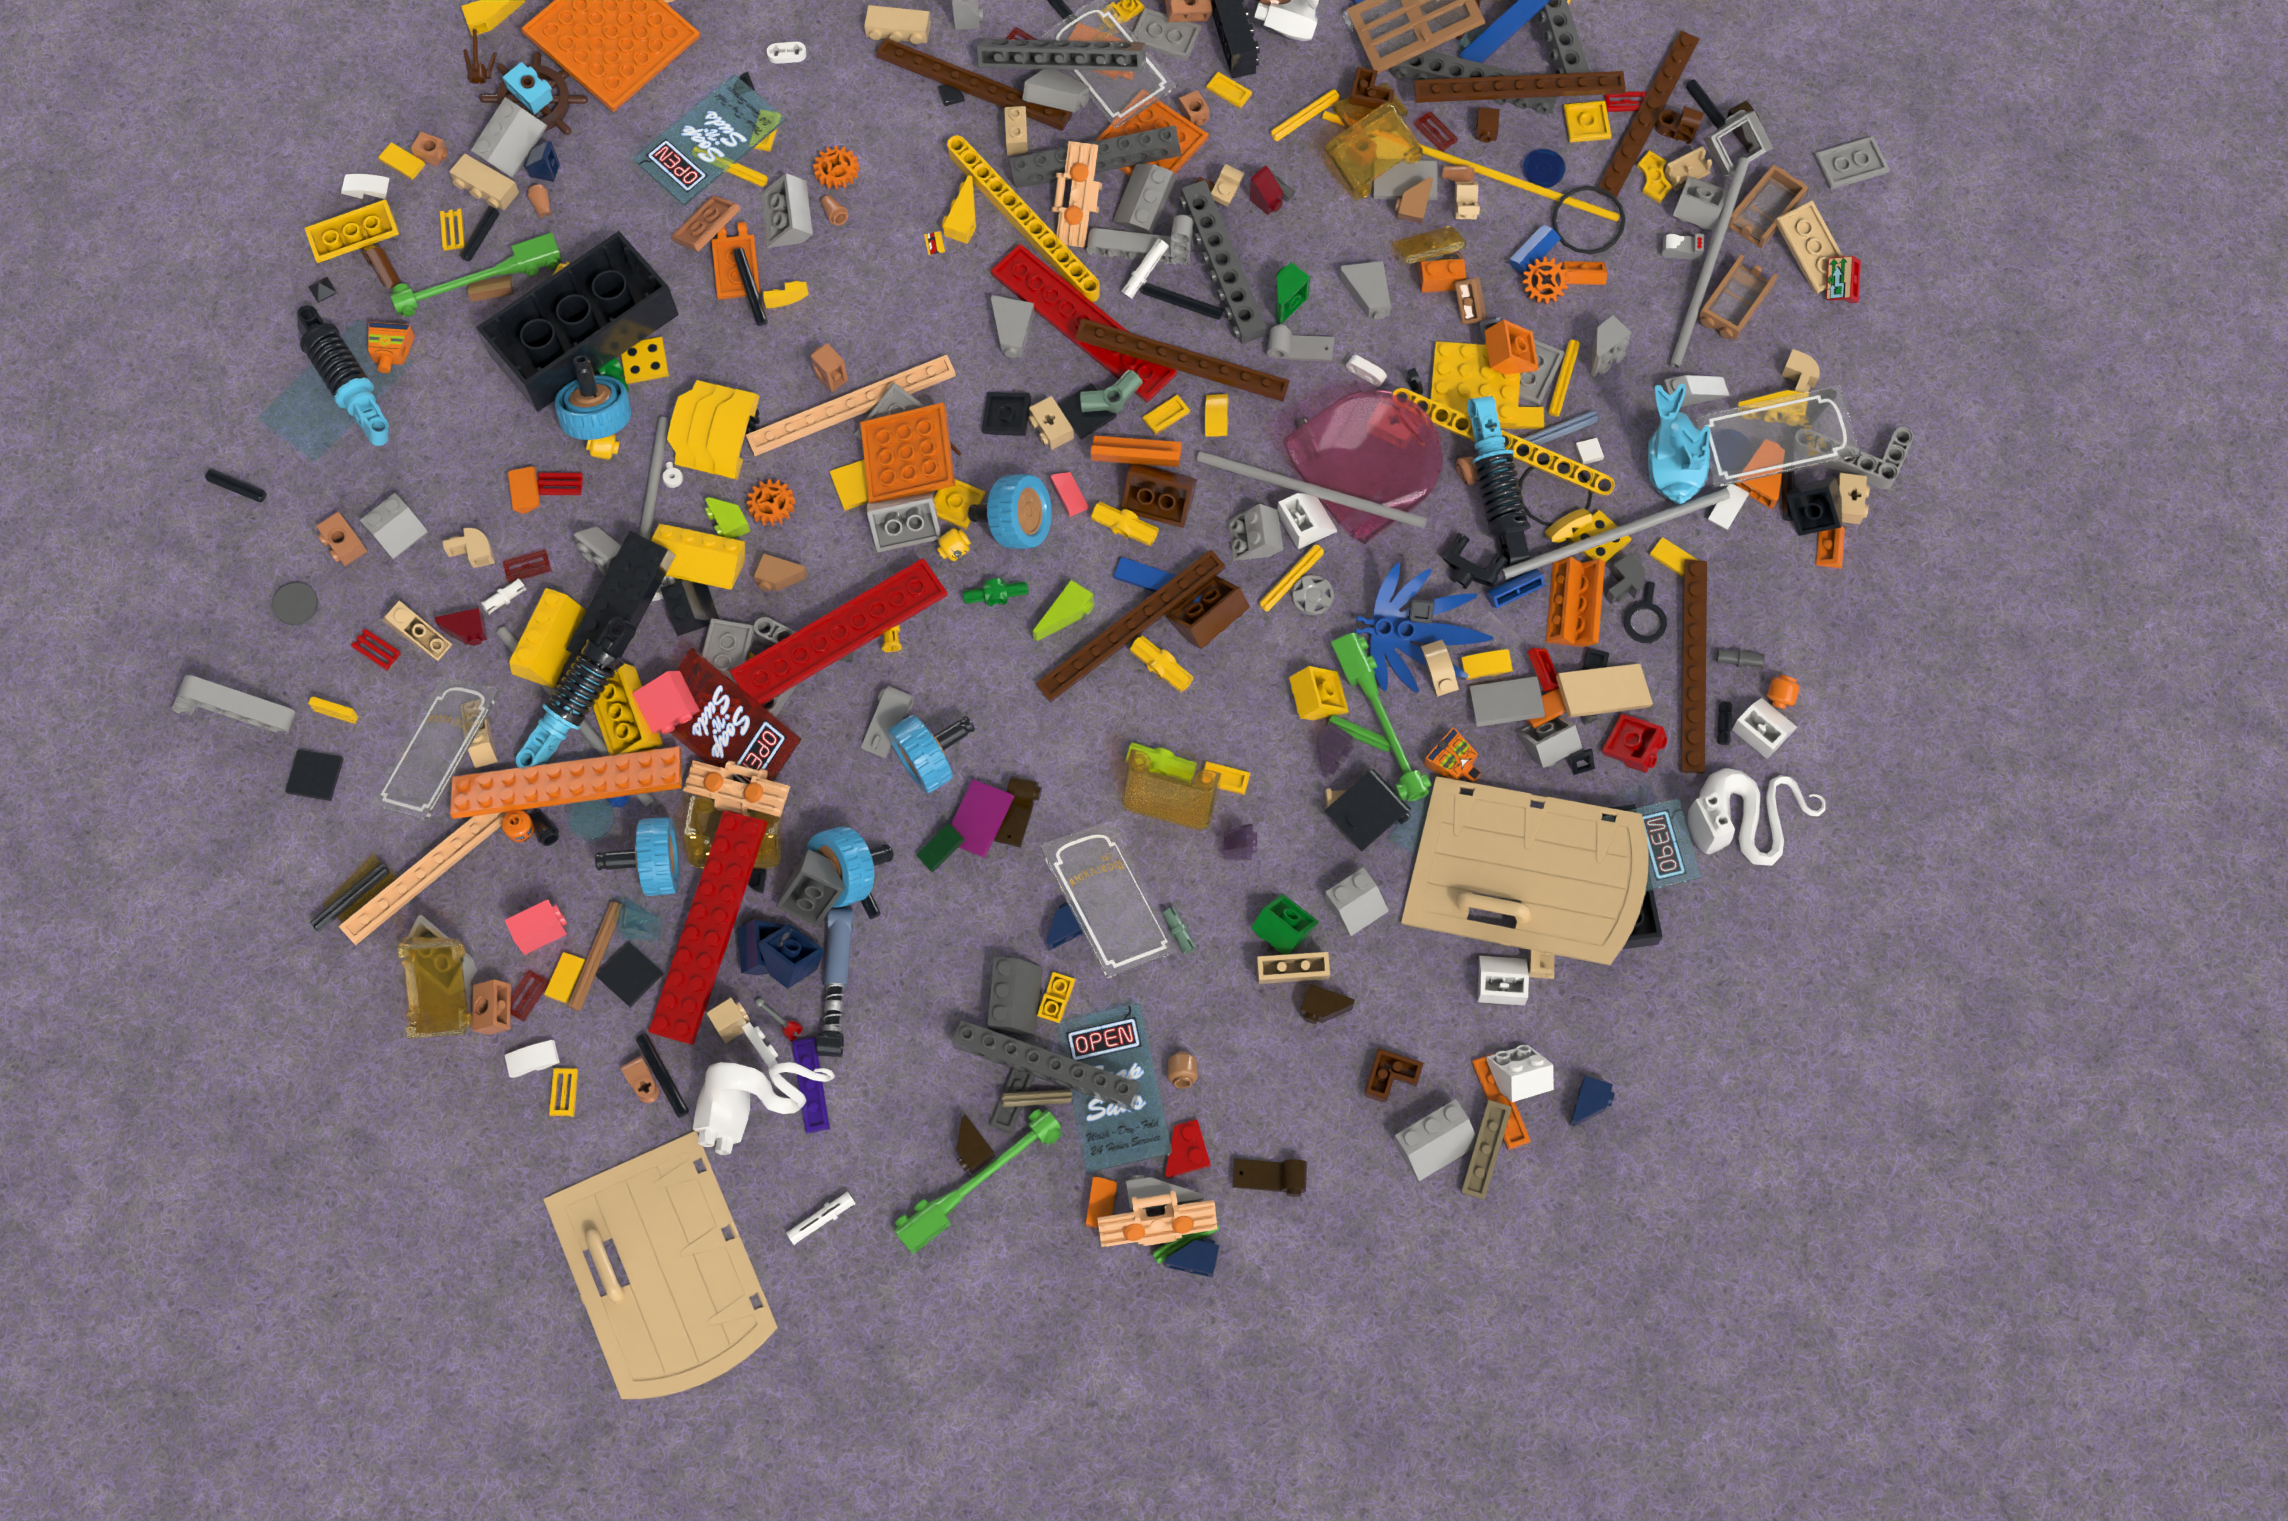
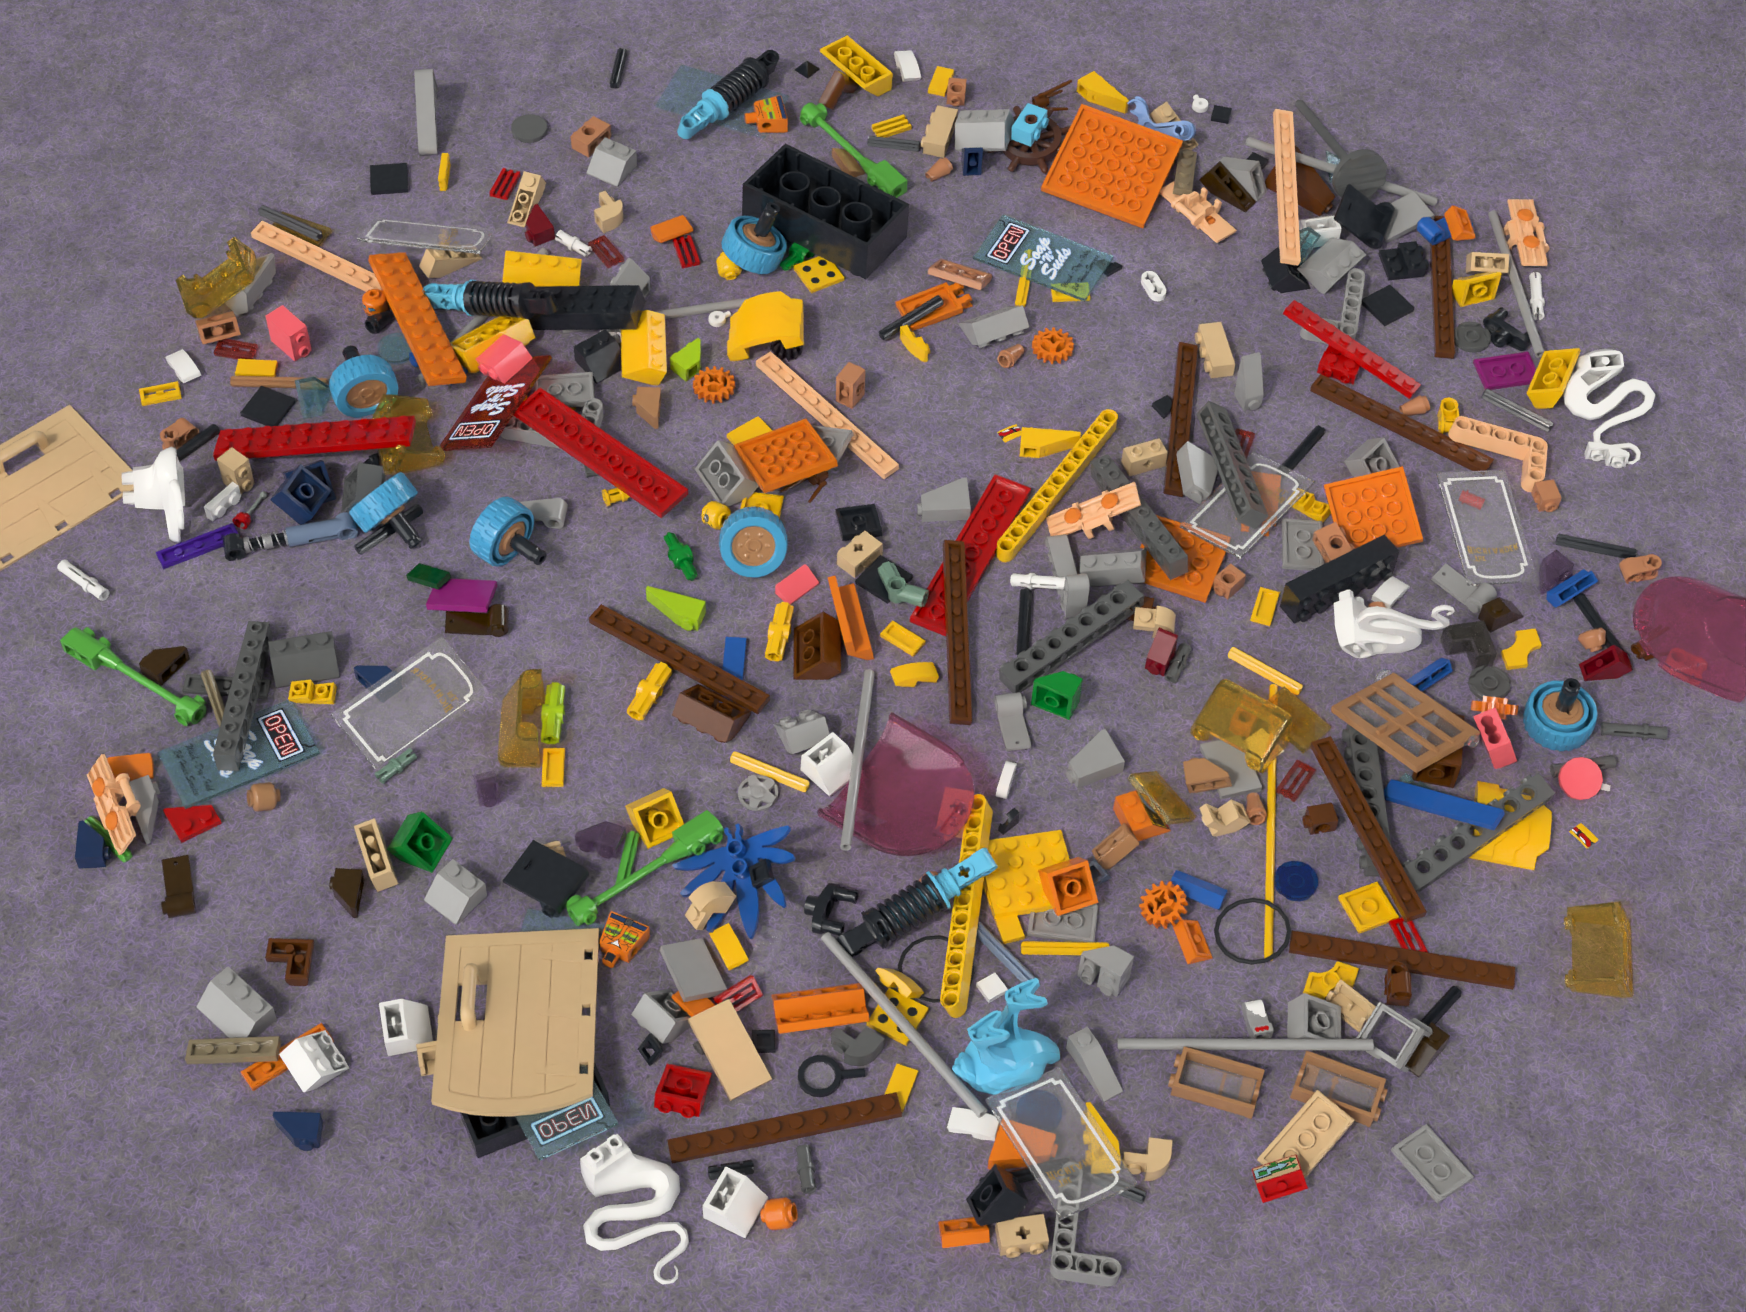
camera: 70 degrees right, 15 degrees down
(735, 796) = (437, 423): light nougat piece -> none
(1364, 91) = (1303, 705): reddish brown brick -> none
(1514, 586) = (819, 951): blue piece -> none

